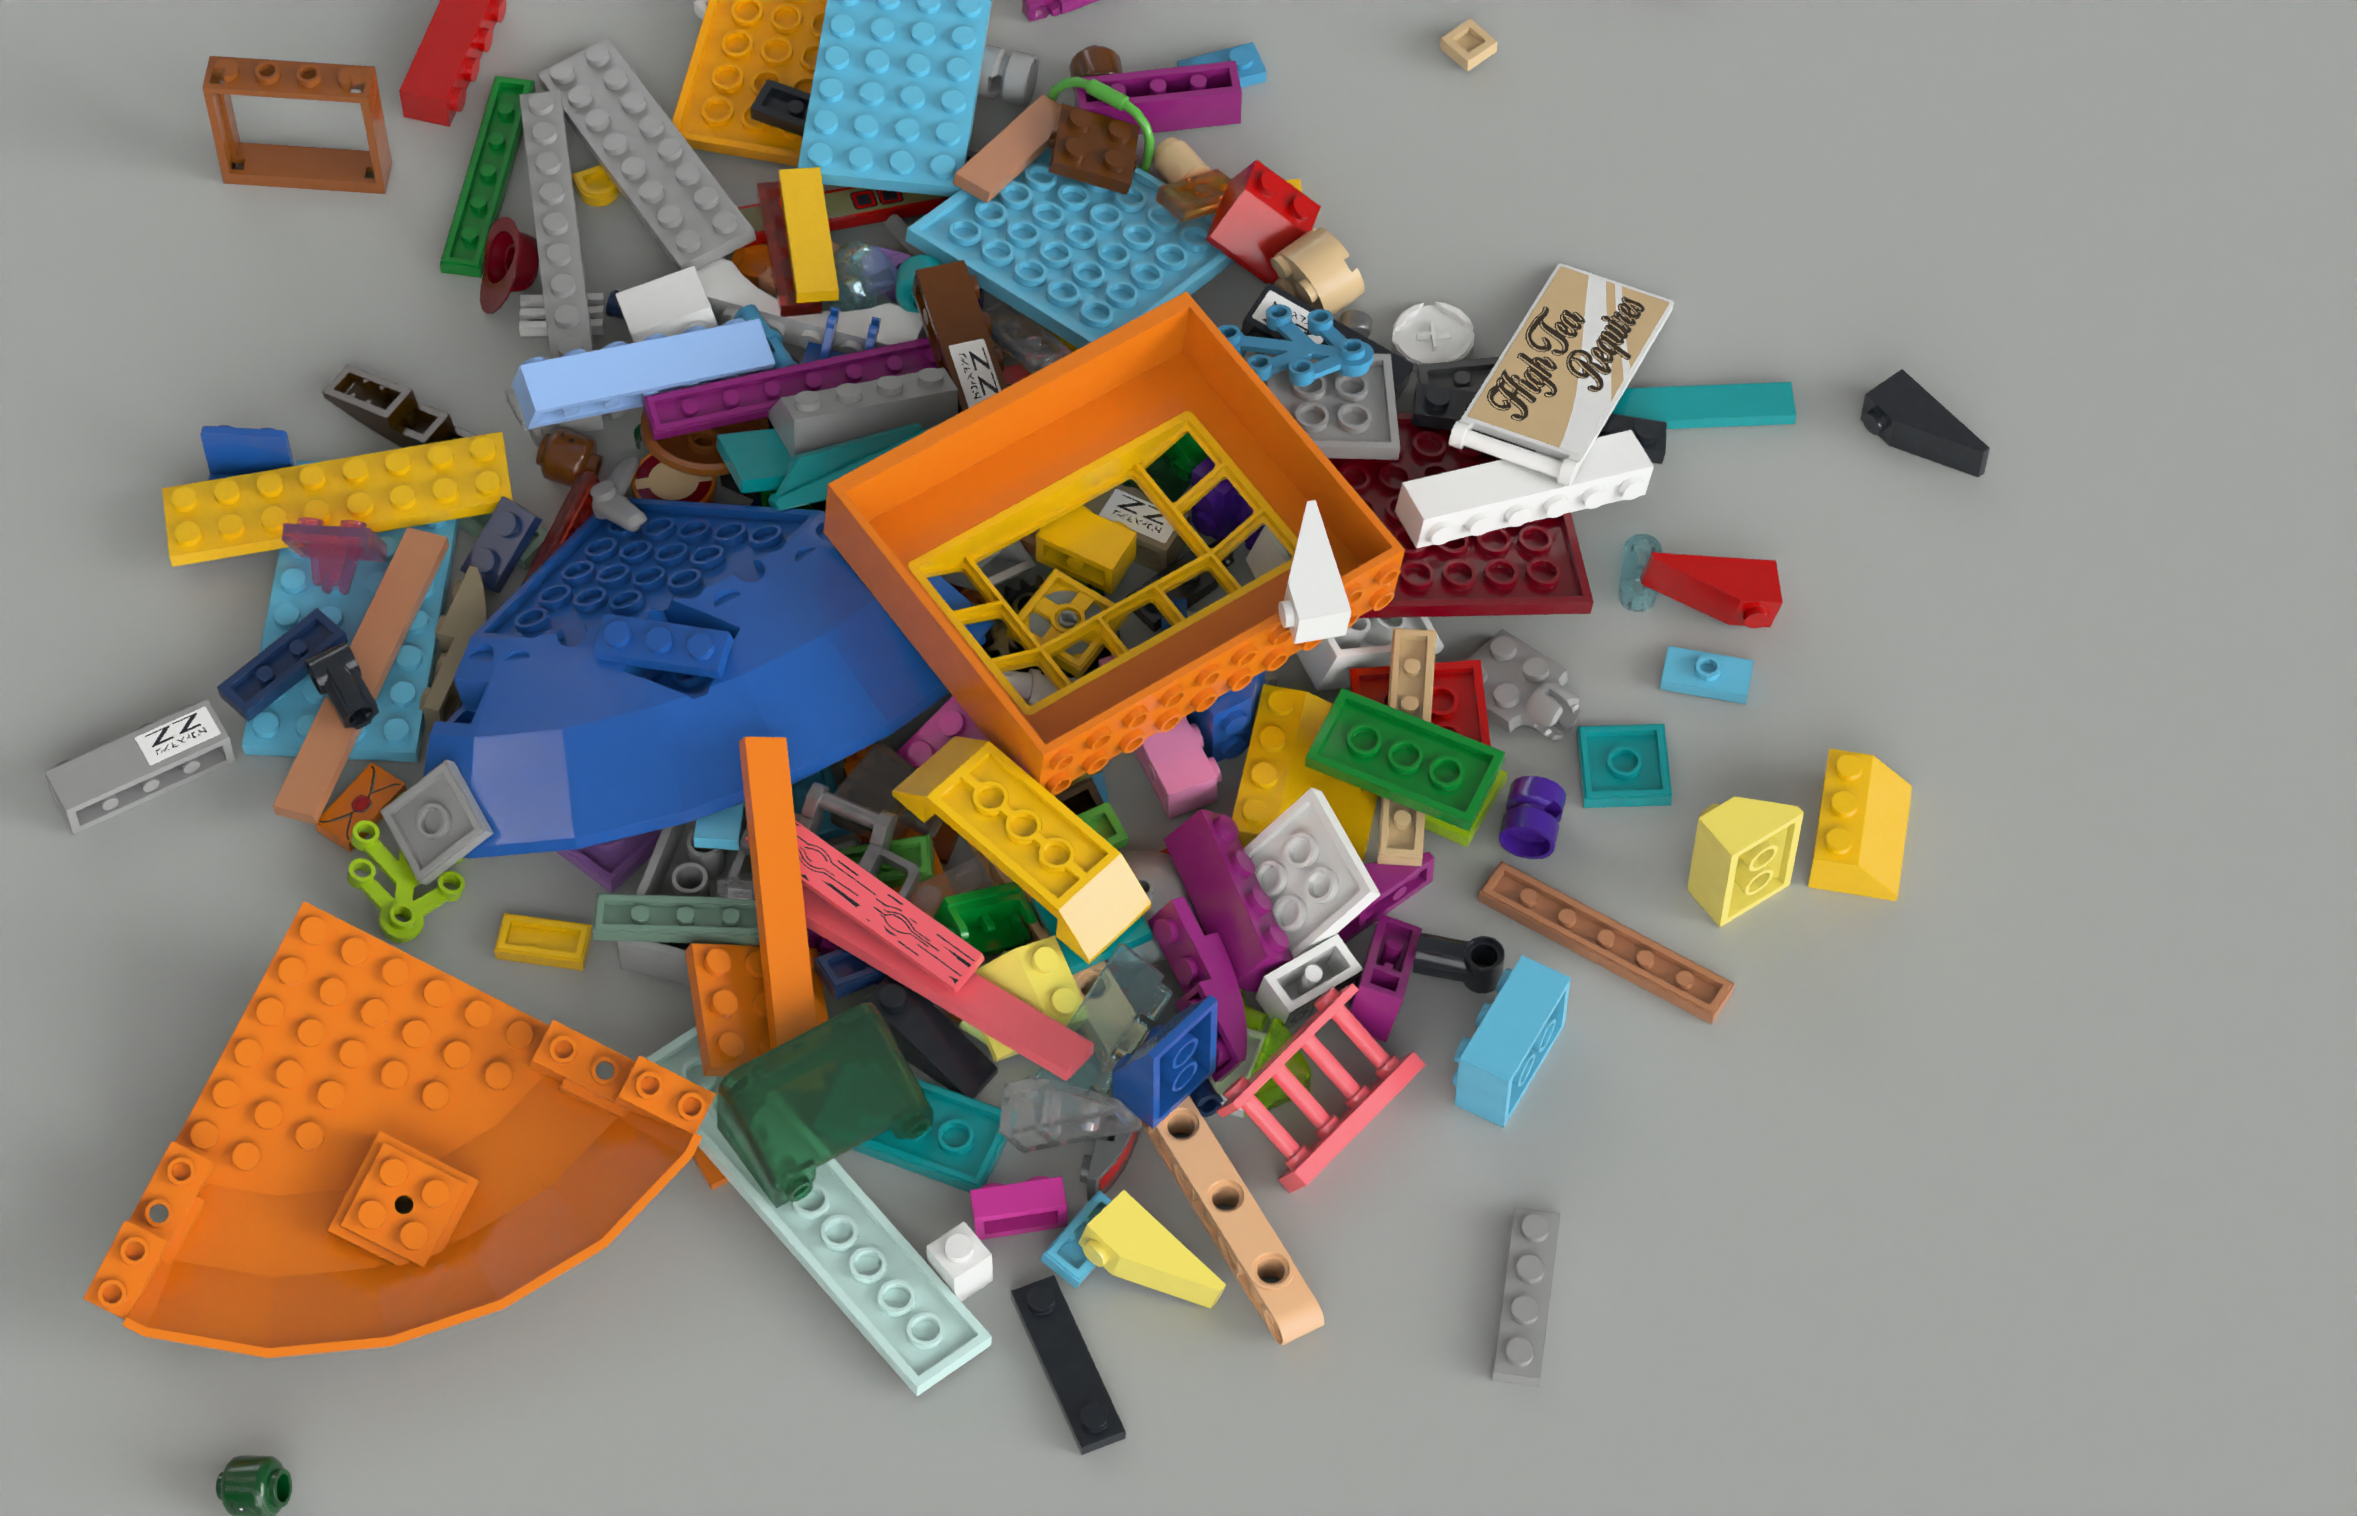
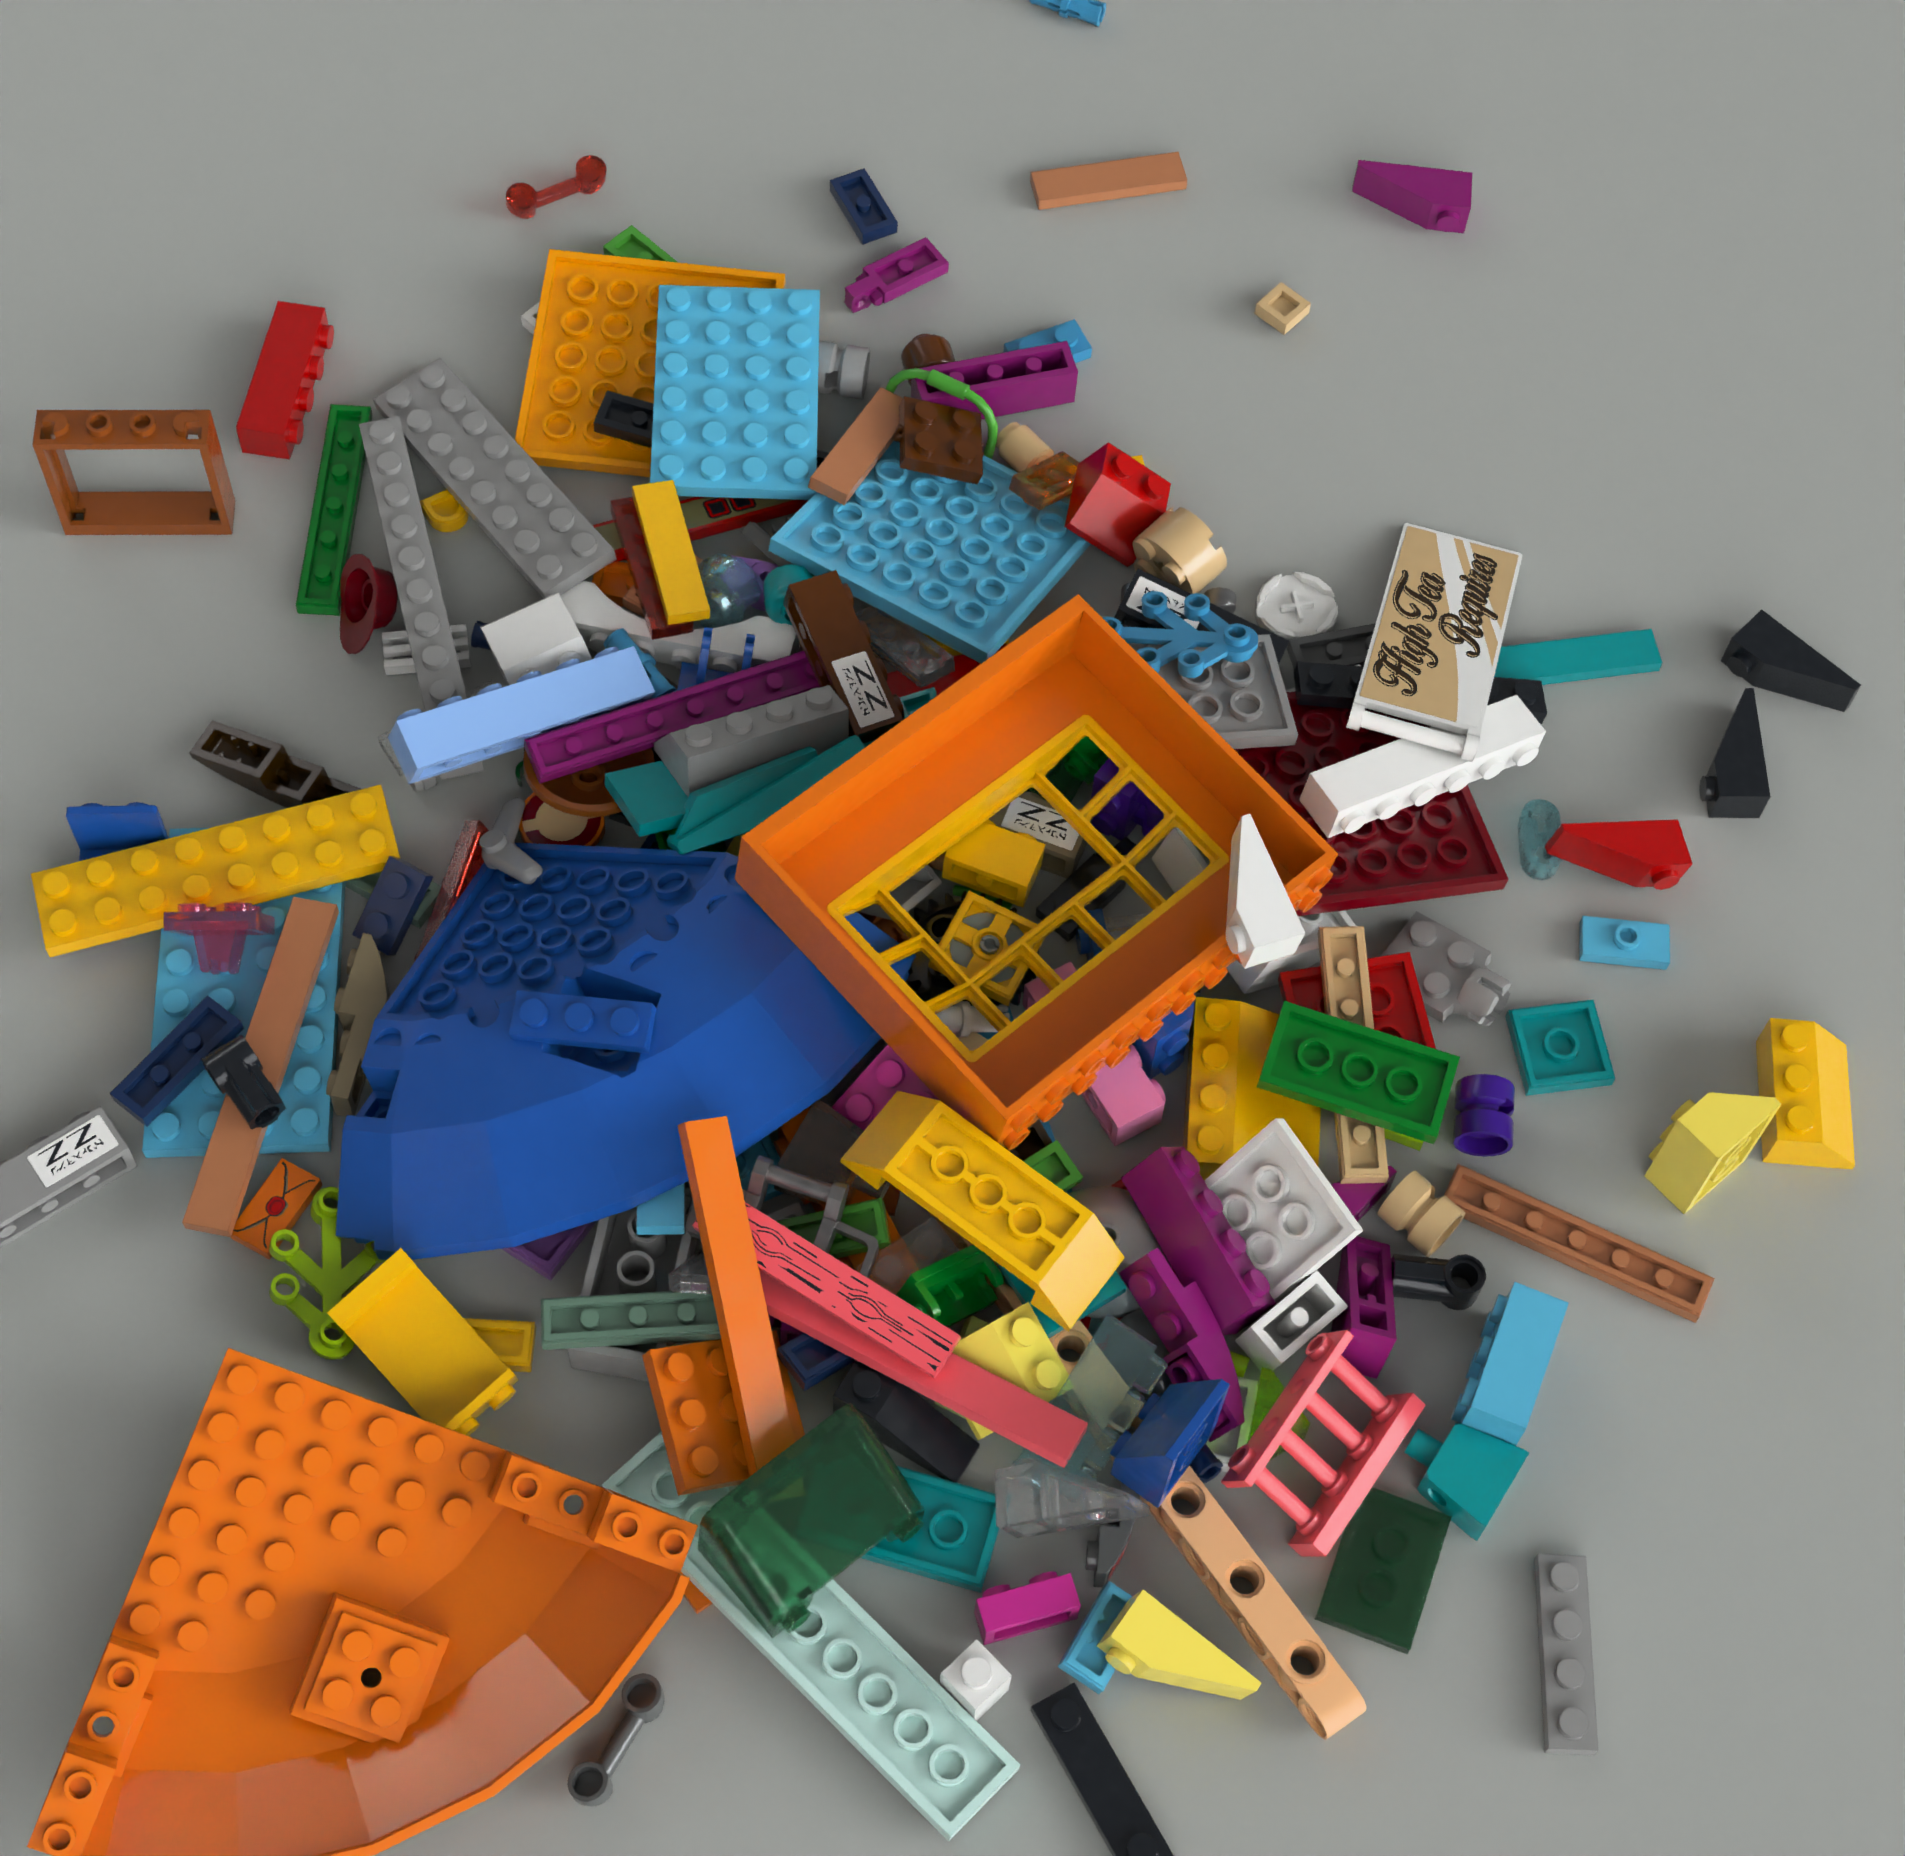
camera: 10 degrees left, 5 degrees up
(436, 822) = (359, 1225): light grey tile -> none
(483, 929) = (424, 1346): none -> yellow panel
(567, 454) = (450, 802): reddish brown head -> none
(652, 1254) = (591, 1781): none -> dark grey bar
(1365, 1208) = (1384, 1570): none -> clear green tile
(1450, 896) = (1420, 1213): none -> tan wheel
(1458, 1132) = (1466, 1474): none -> teal torso
(1849, 518) = (1738, 774): none -> black slope

